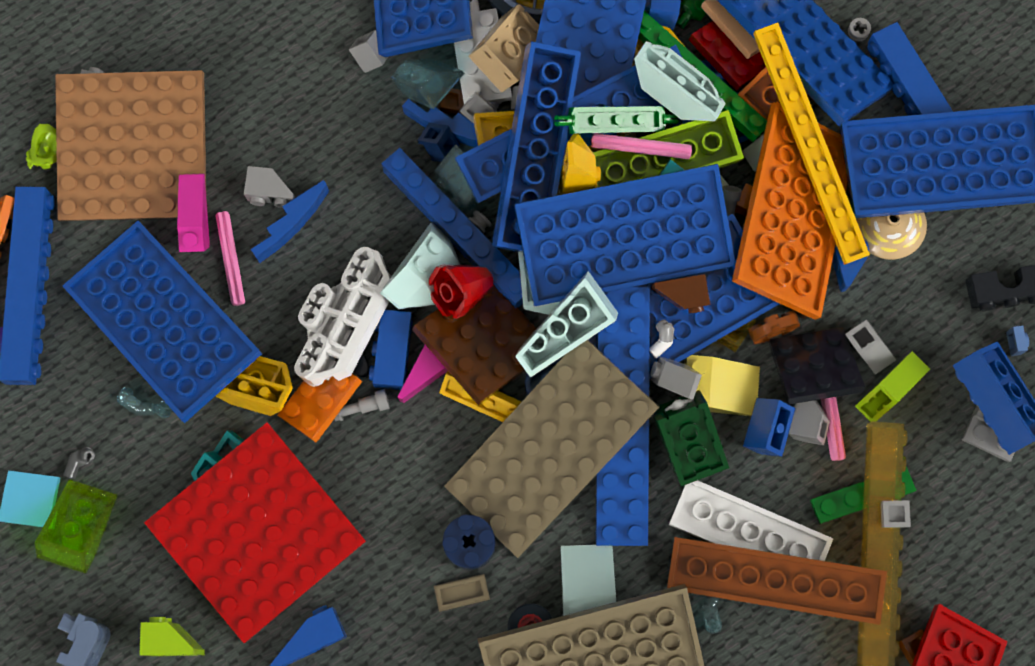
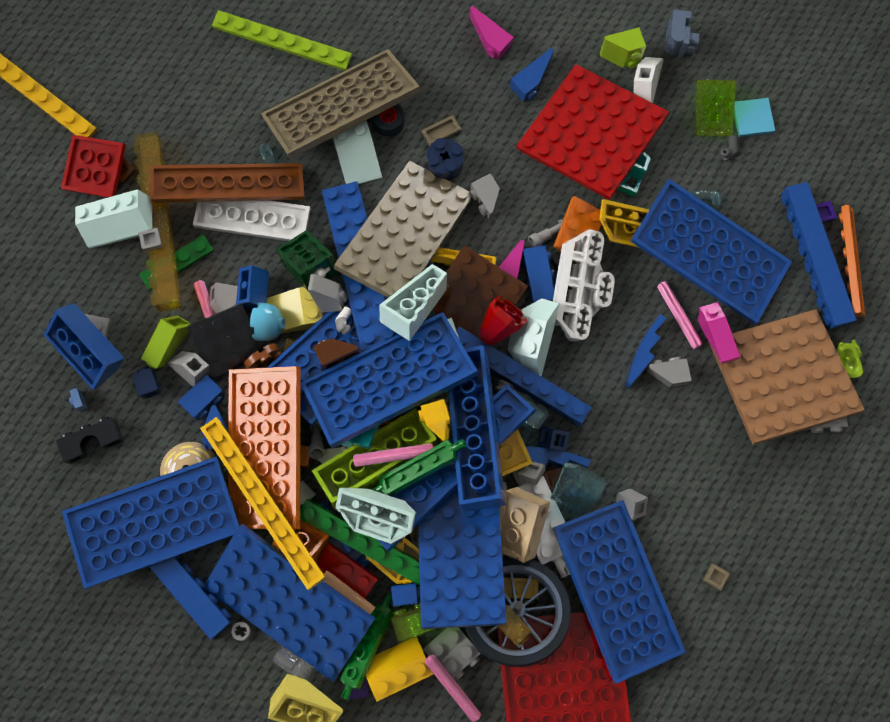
camera: 160 degrees right, 0 degrees up
(152, 589) = (647, 77): none -> white slope
(426, 479) = (485, 191): none -> light grey slope
(759, 369) = (267, 322): none -> medium azure cylinder
(860, 303) = (201, 398): none -> blue brick
(927, 340) = (146, 382): none -> dark blue brick
(938, 565) = (114, 218): none -> light aqua slope

